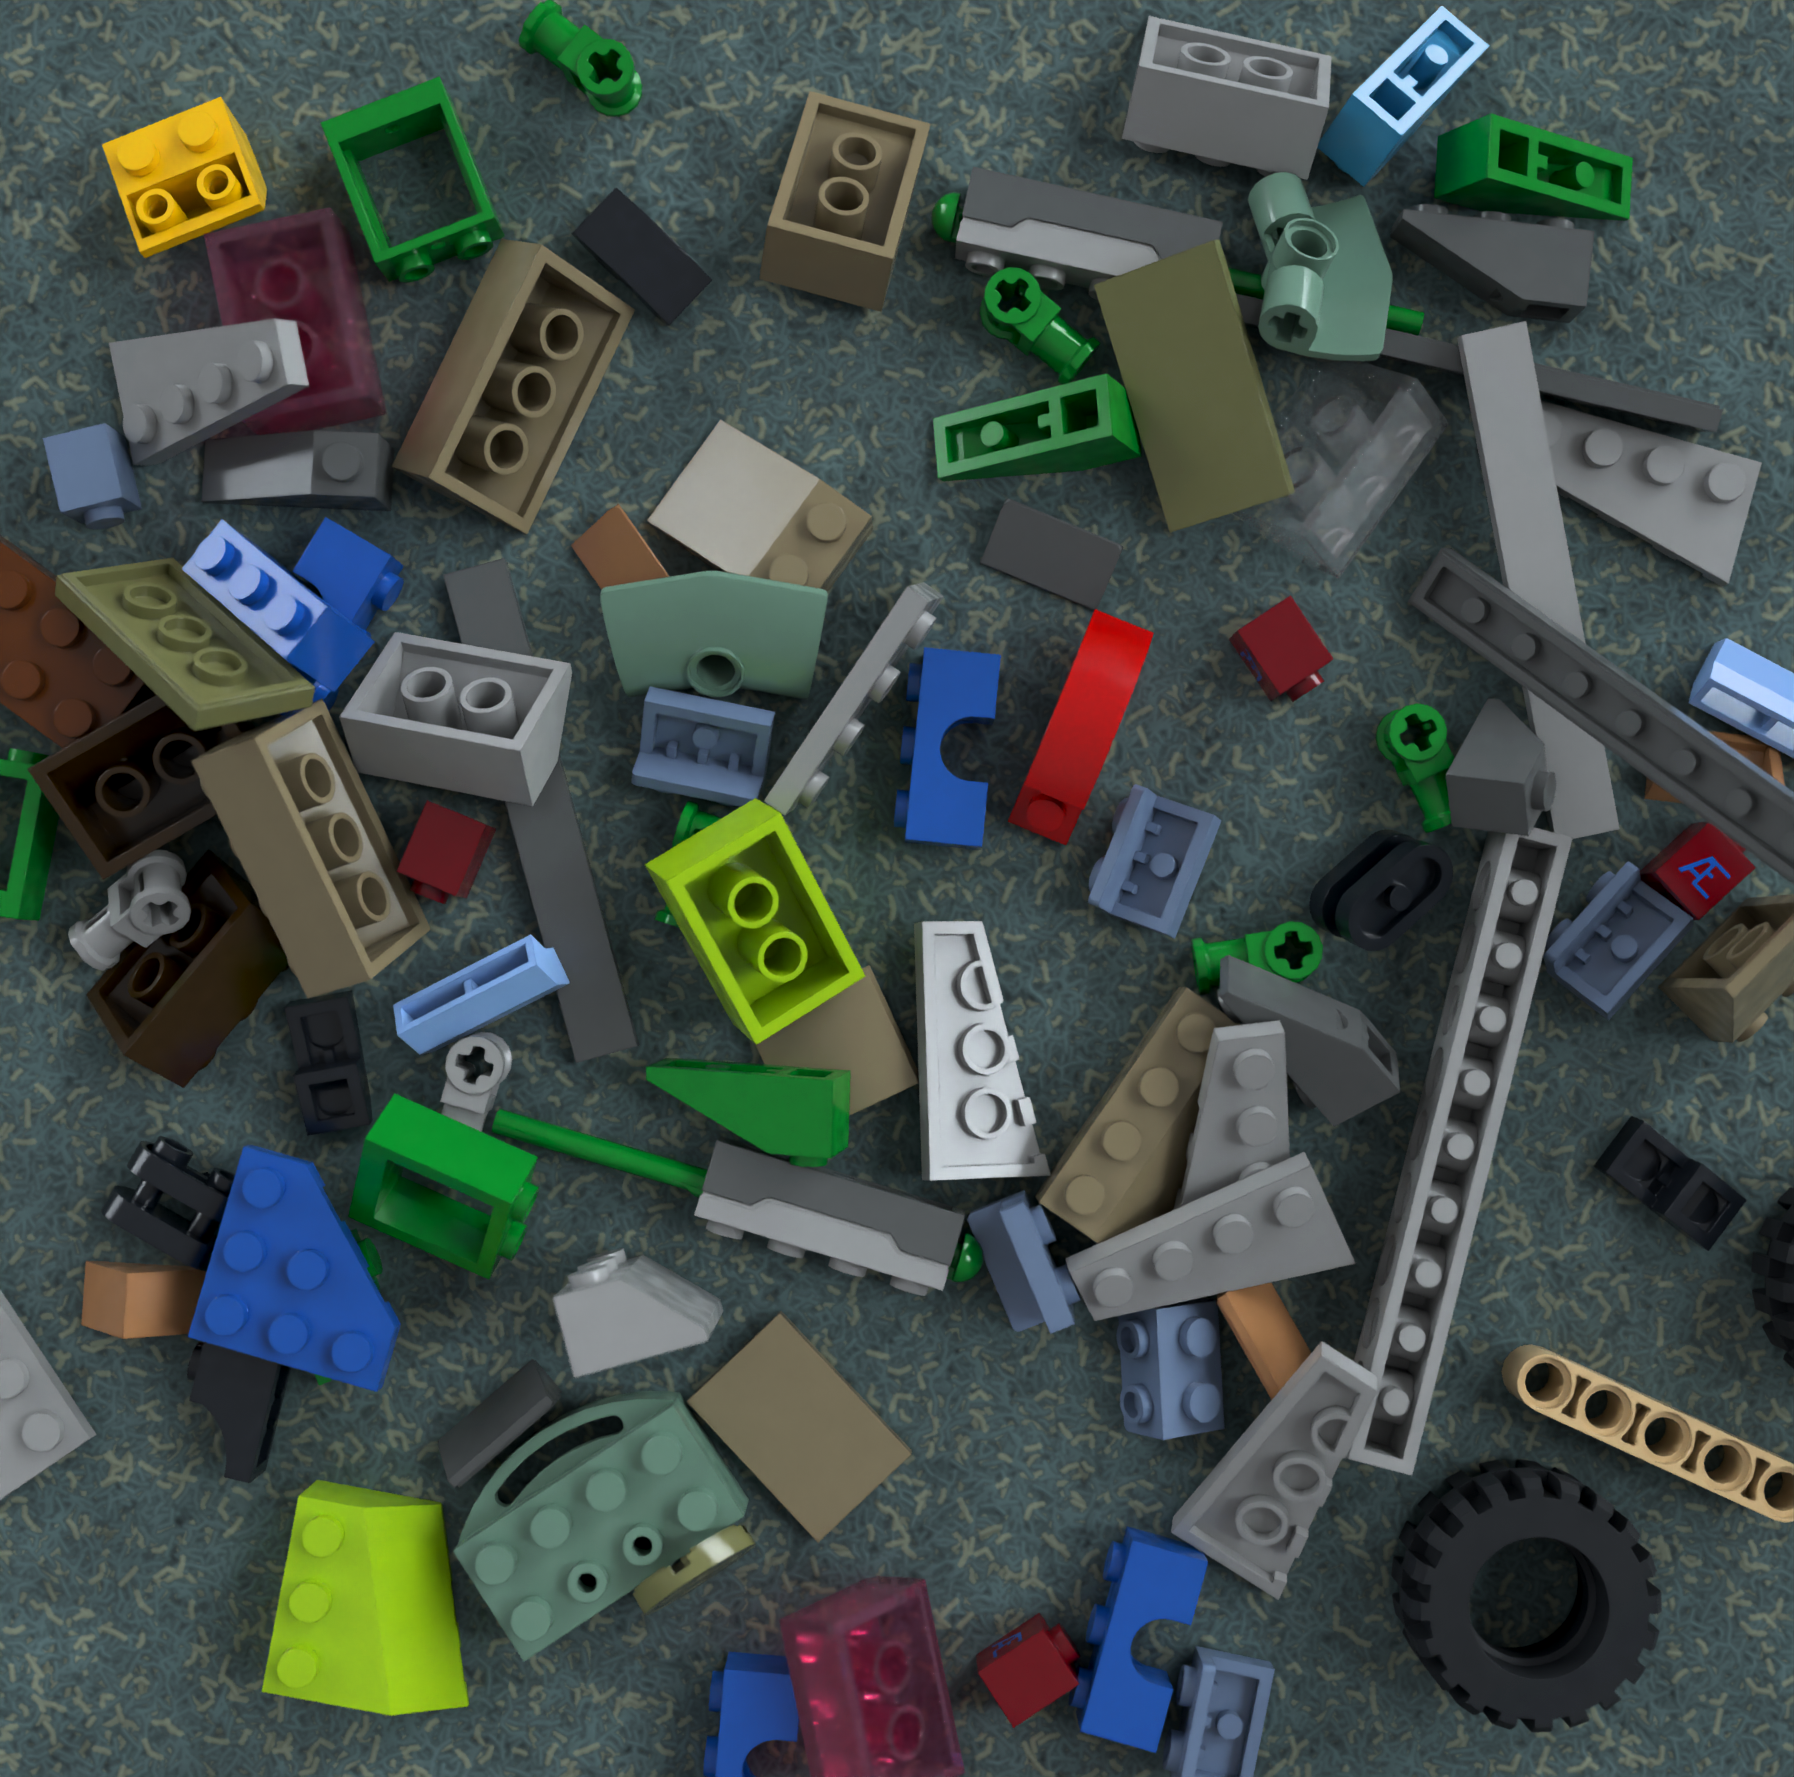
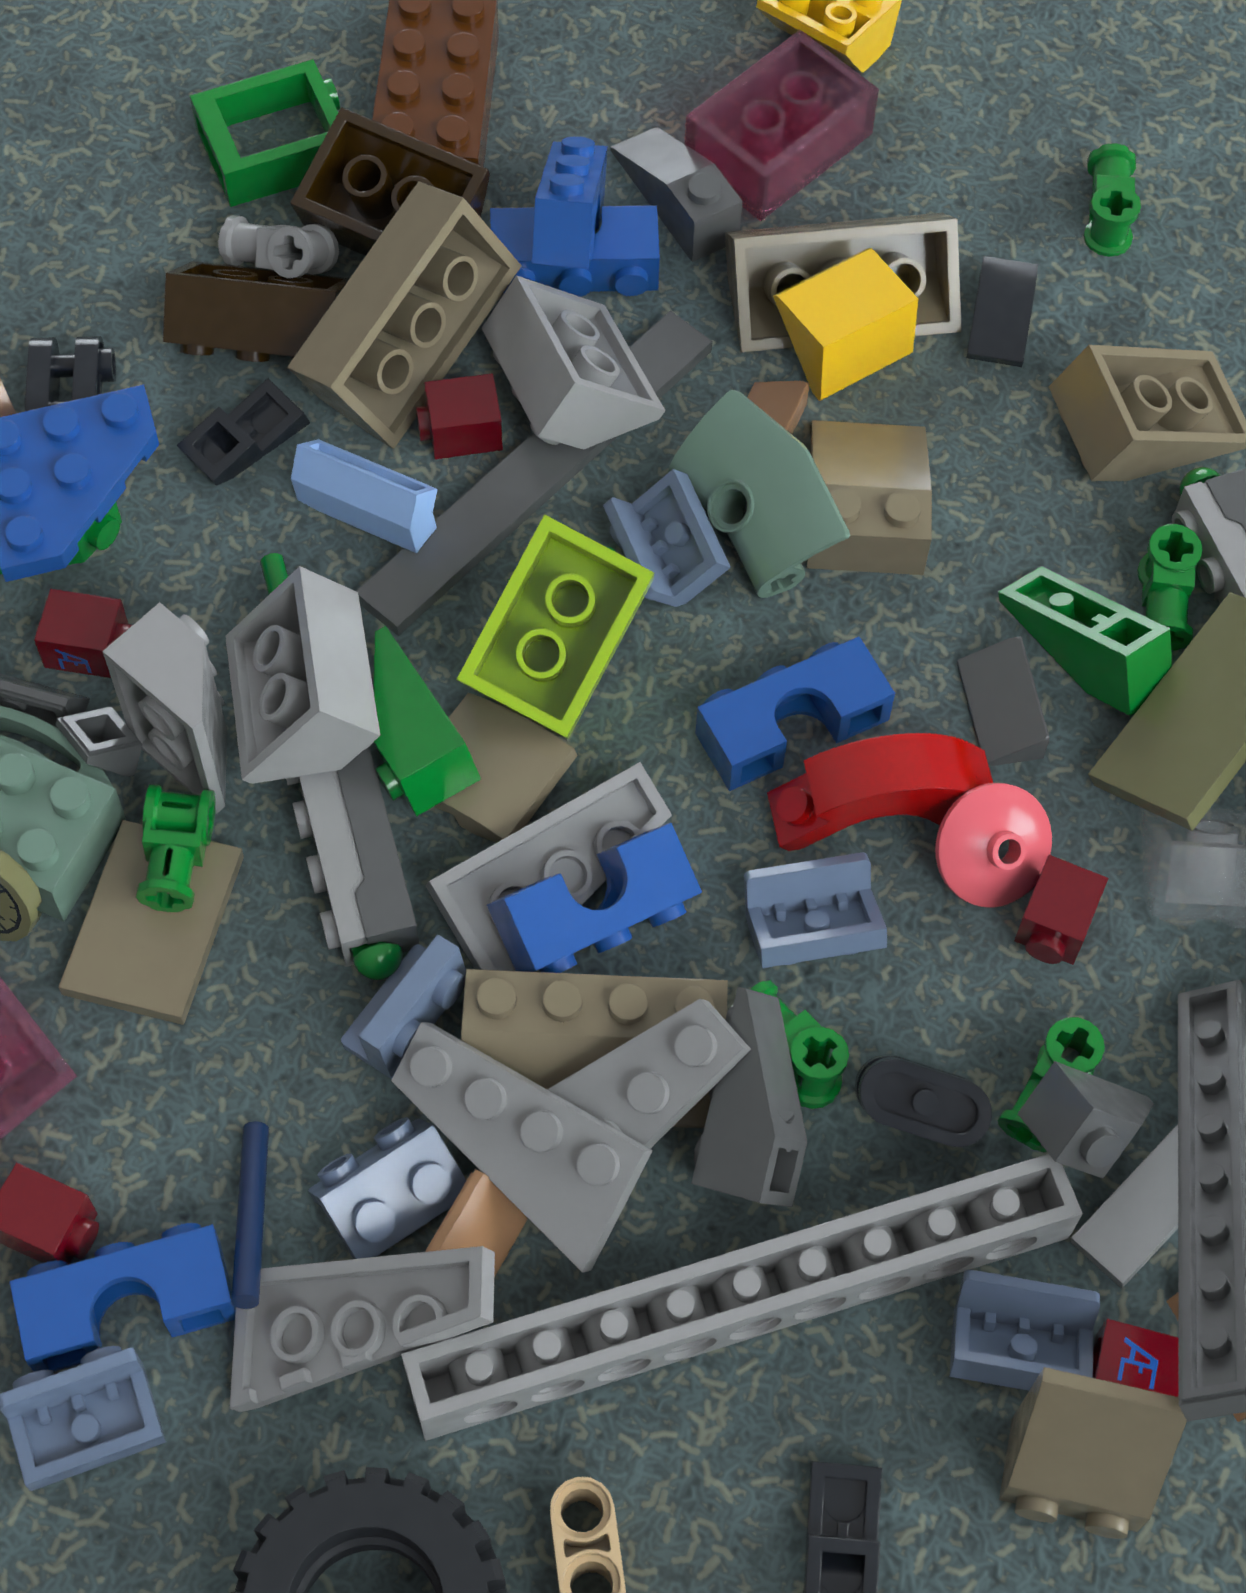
camera: 50 degrees right, 25 degrees down
(93, 476) = (580, 69): sand blue brick -> none
(184, 643) = (500, 153): olive tile -> none
(202, 382) = (694, 81): light grey wing -> none
(391, 124) = (941, 98): green window -> none
(457, 1158) = (219, 490): green window -> none
(469, 1097) = (284, 529): light grey connector -> none
(472, 1335) = (77, 631): none -> dark red brick
(572, 420) = (849, 321): none -> yellow slope
(601, 1393) = (102, 740): none -> dark grey slope
(670, 1183) = (301, 681): none -> light grey slope
(747, 1375) = (173, 842): none -> green connector
(867, 681) = (790, 614): light grey wing -> none
(1045, 996) = (644, 881): none -> blue arch
(1130, 1496) = (250, 1216): none -> dark blue bar
(1189, 666) = (971, 840): none -> coral dish

